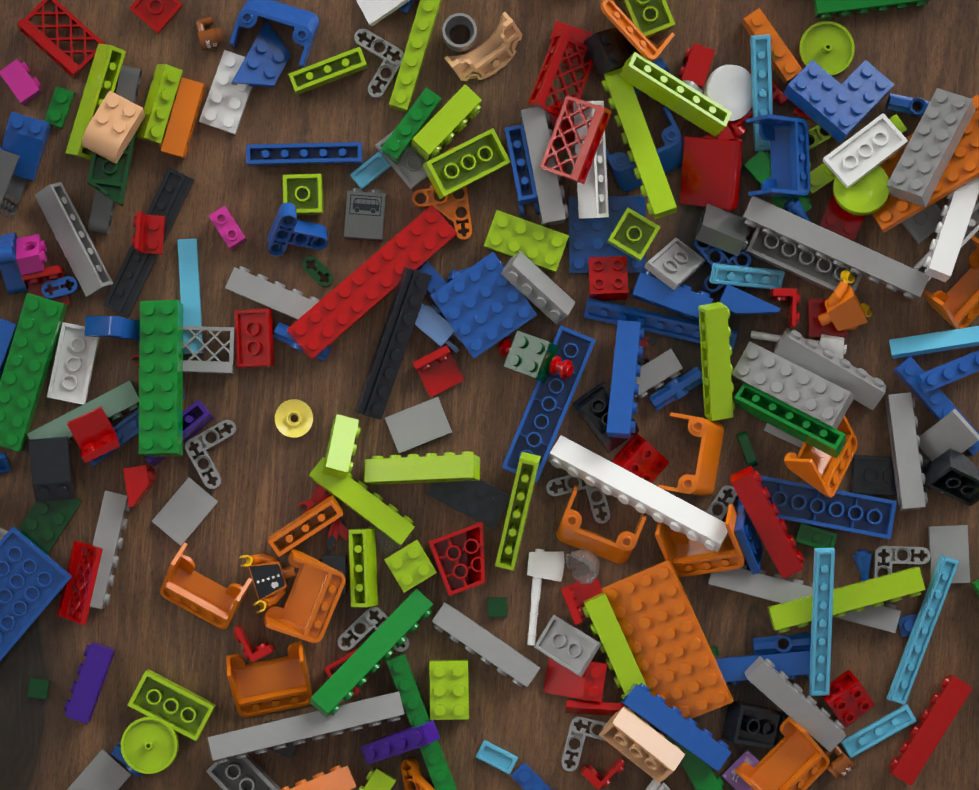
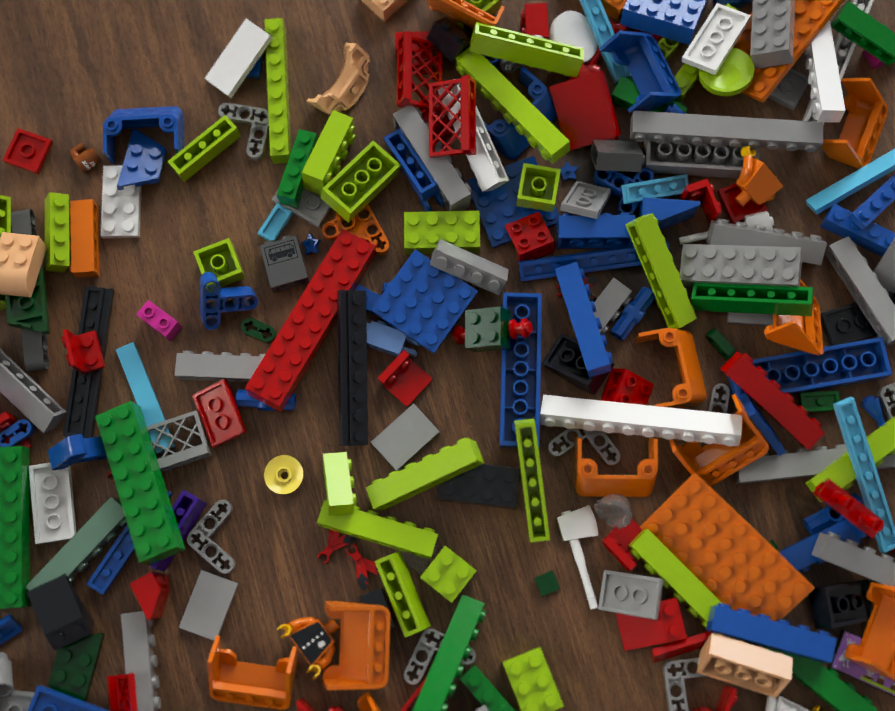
camera: 15 degrees left, 10 degrees down
(94, 434) = (90, 561): red bracket -> none
(304, 154) = (207, 228): blue brick -> none
(305, 525) = (331, 574): orange brick -> none
(397, 205) = (311, 244): none -> blue piece
(453, 21) = (310, 63): light grey piece -> none
(461, 558) = (494, 547): red wedge -> none
(486, 644) = (550, 624): light grey brick -> none
(671, 224) = (568, 172): none -> blue piece
(790, 645) = (849, 507): none -> red hose
(841, 221) = (717, 105): red plate -> none

